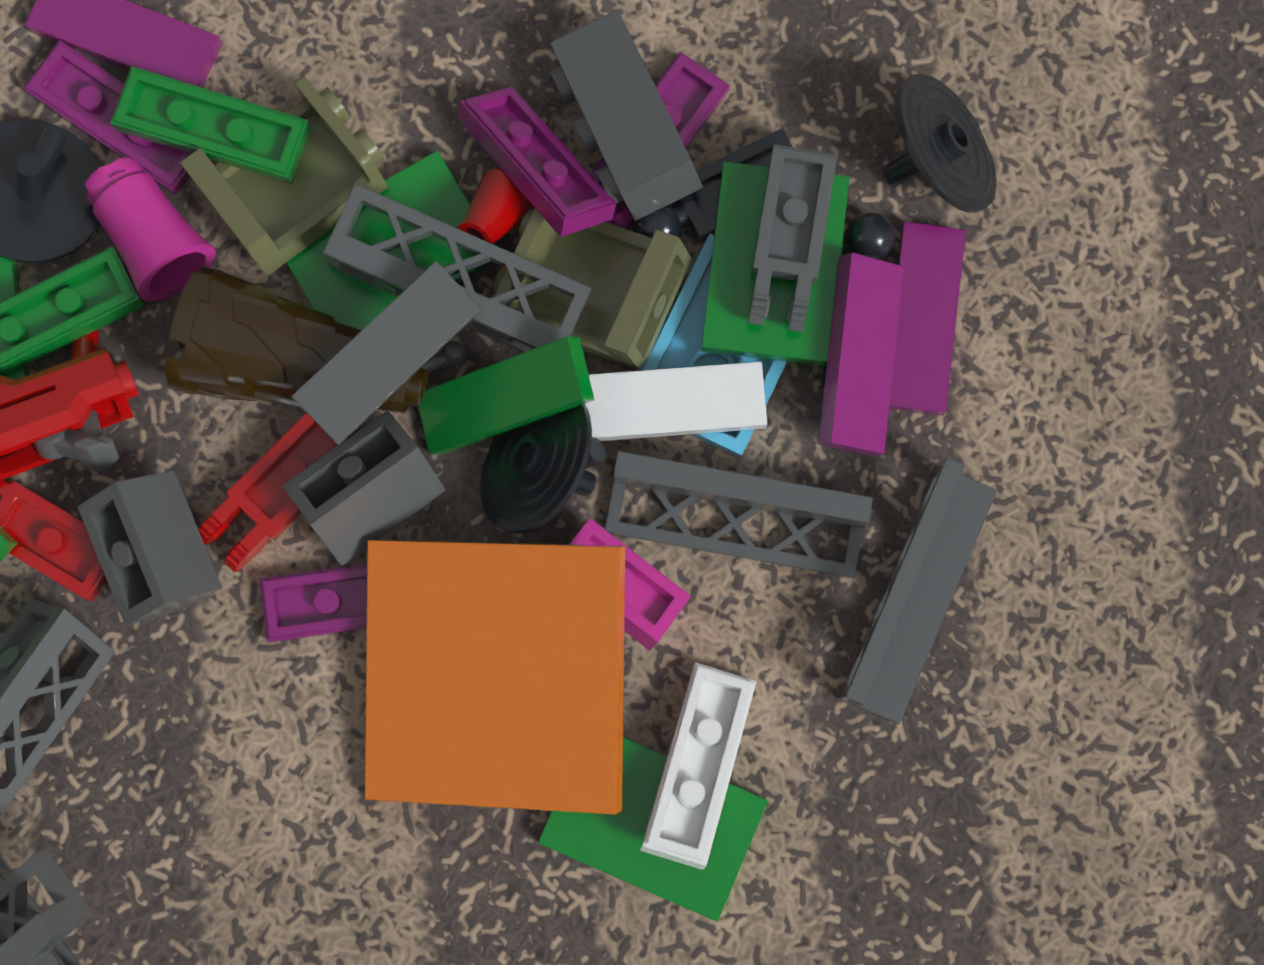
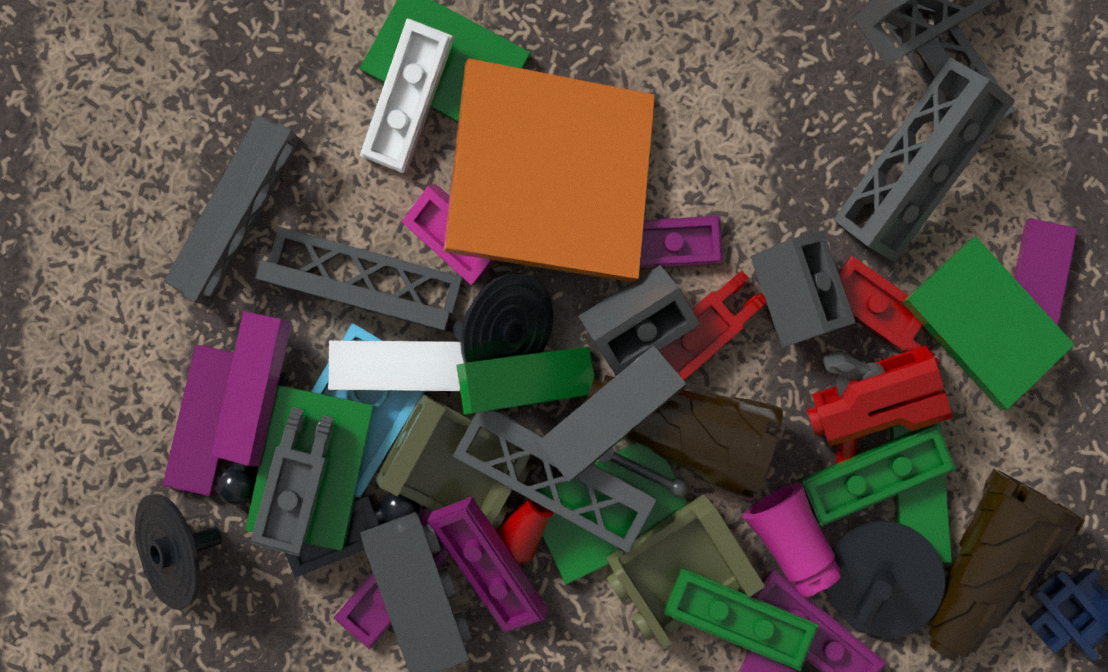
camera: 175 degrees left, 5 degrees up
(300, 280) = (677, 487): none -> dark grey hinge

